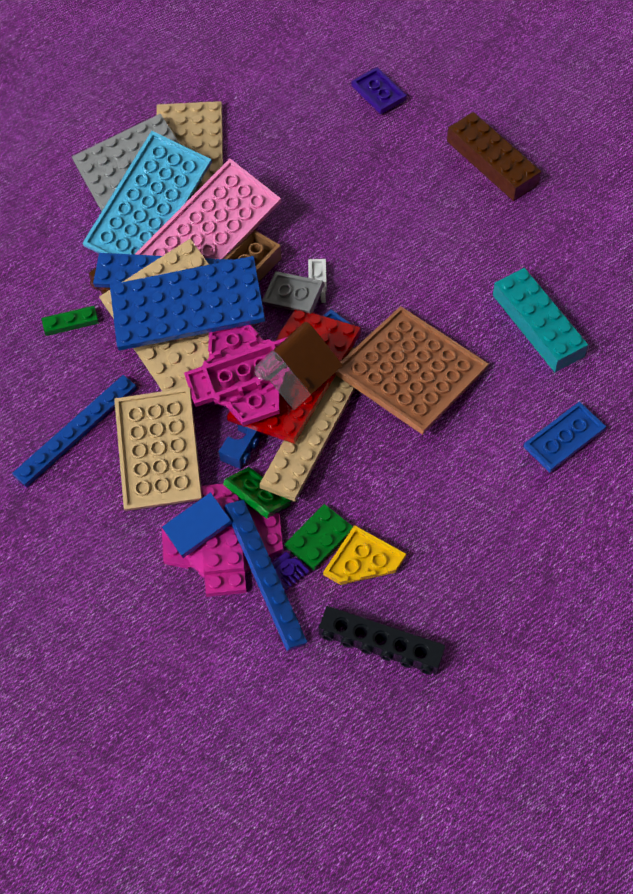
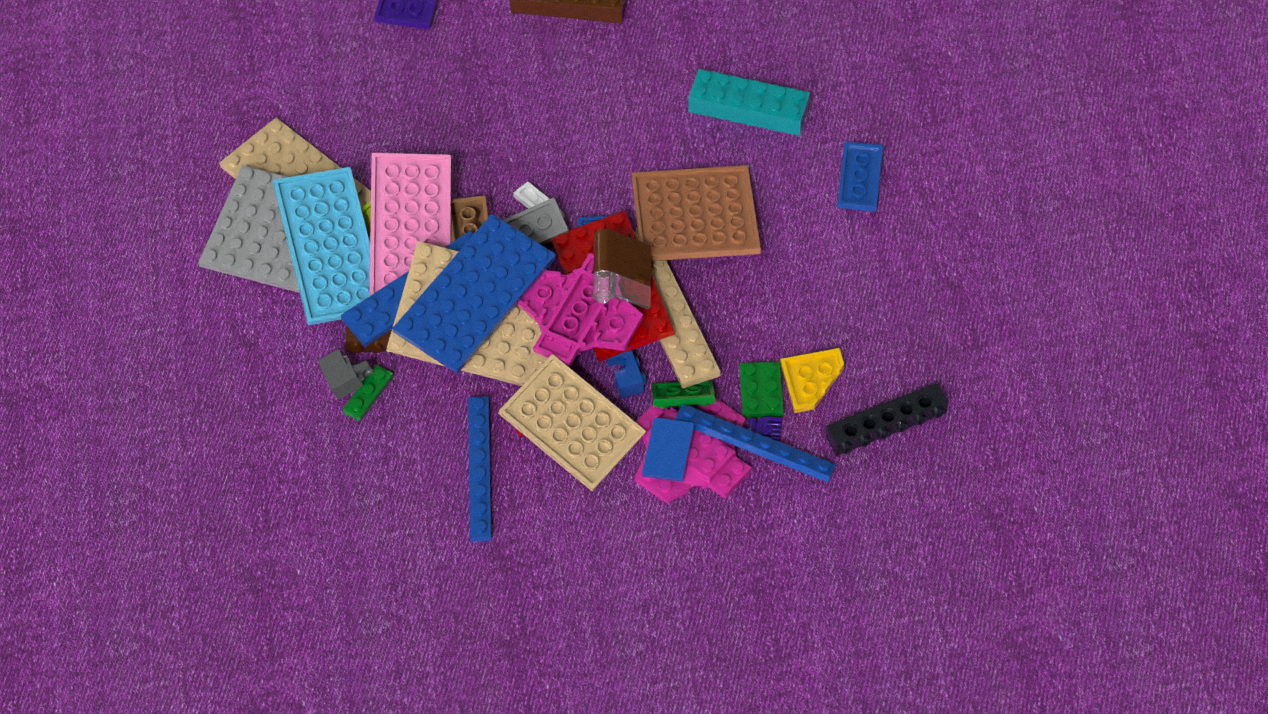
camera: 45 degrees left, 5 degrees down
(63, 293) = (342, 375): none -> dark grey hinge

